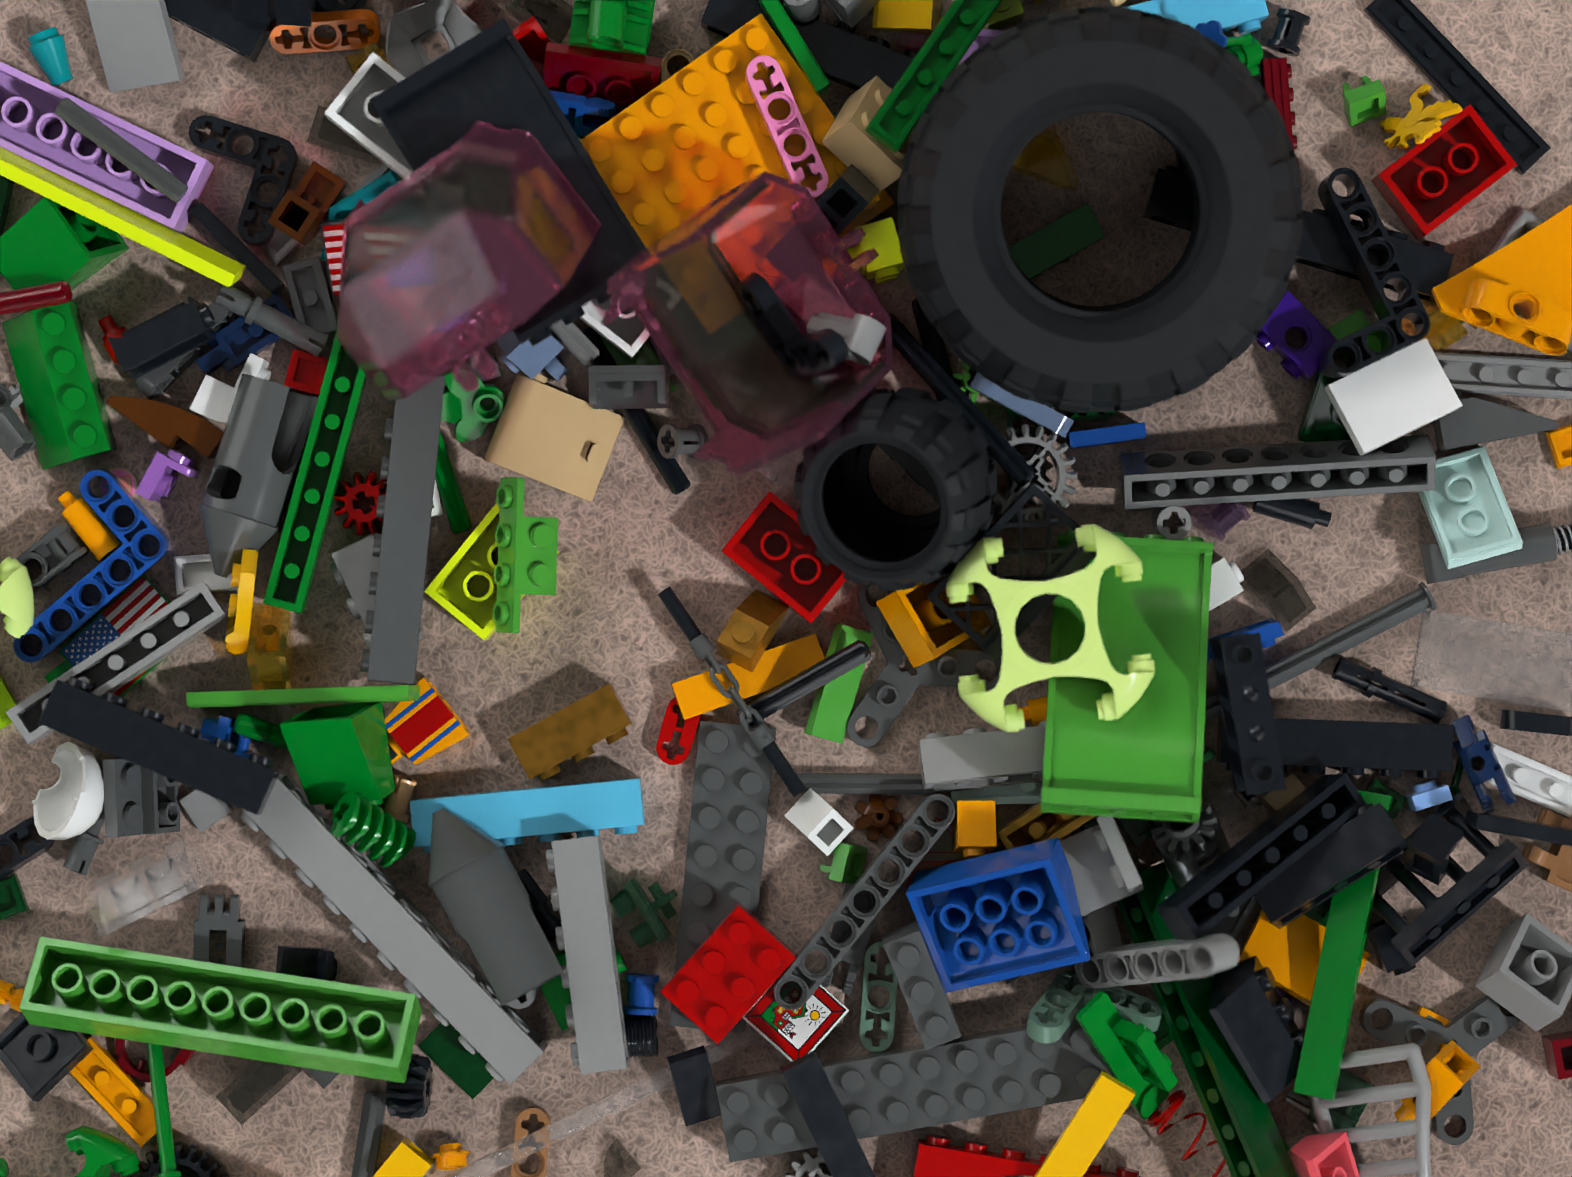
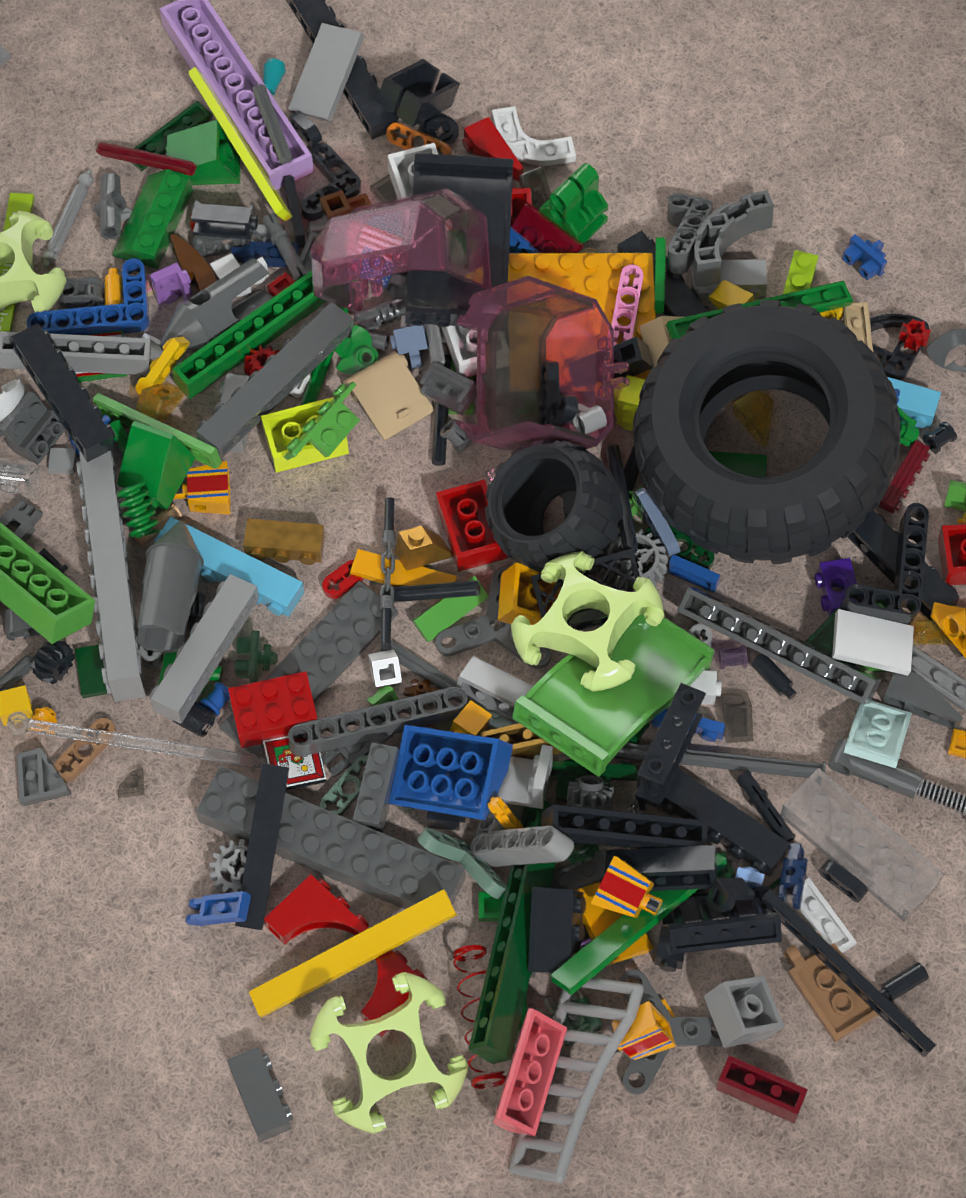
camera: 30 degrees right, 25 degrees down
(158, 111) = (305, 128): none -> black beam
(694, 1085) = (208, 760): black tile -> none
(1107, 929) = (503, 814): none -> light orange axle
(1128, 1053) = (468, 897): green bracket -> none
(1315, 934) = (626, 890): none -> torso

